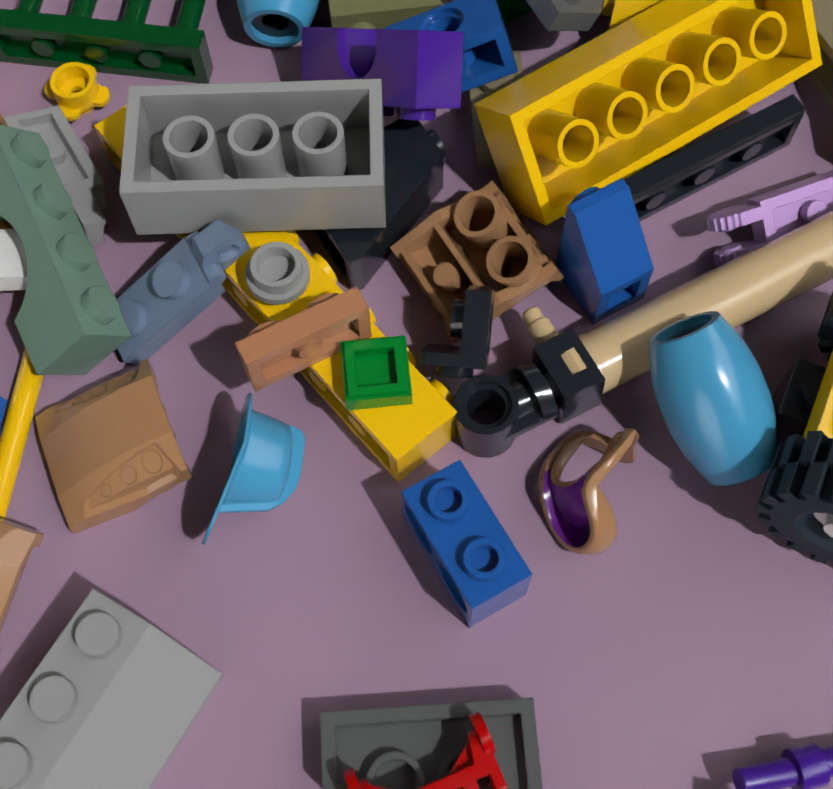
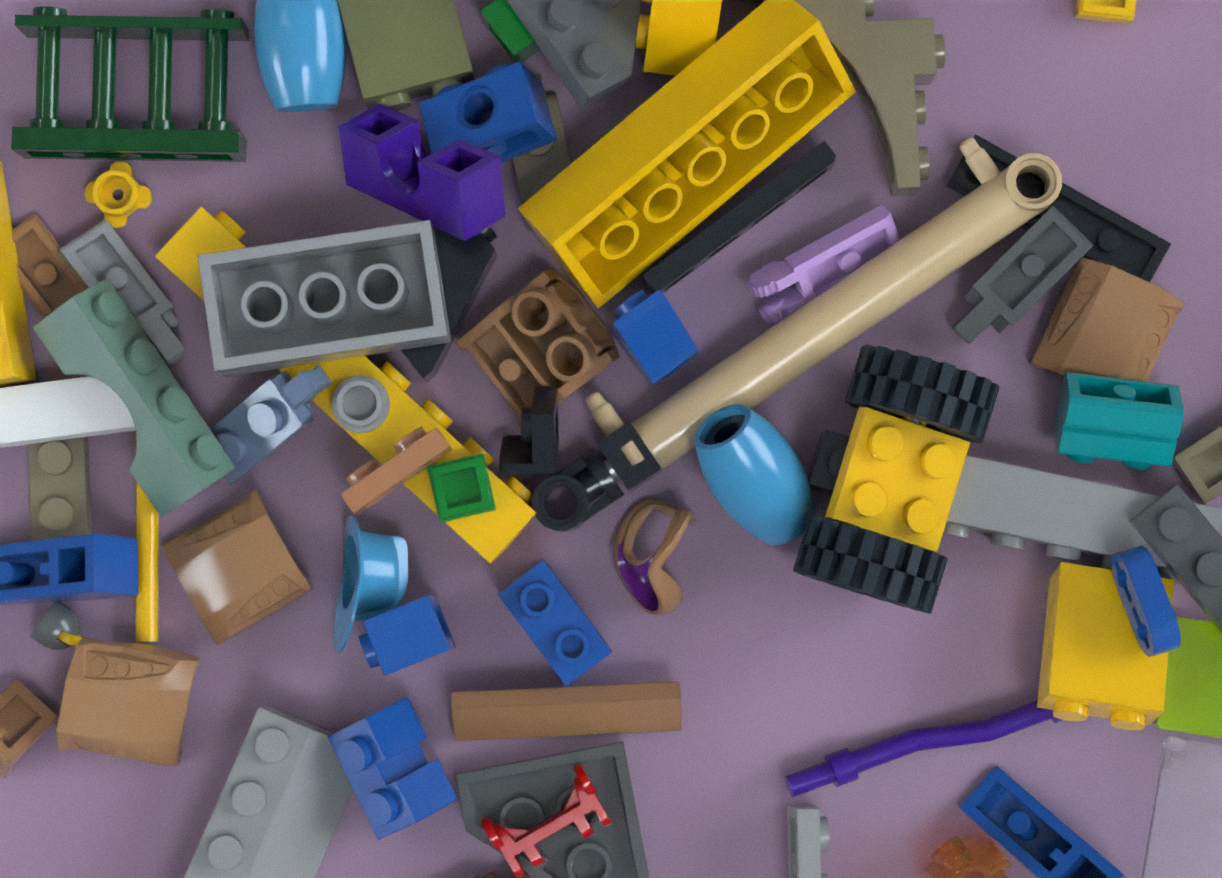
camera: 10 degrees left, 20 degrees up
(238, 692) = (390, 769): none -> blue brick
(285, 527) = (406, 635): none -> blue brick
(468, 652) = (566, 711): none -> medium nougat tile

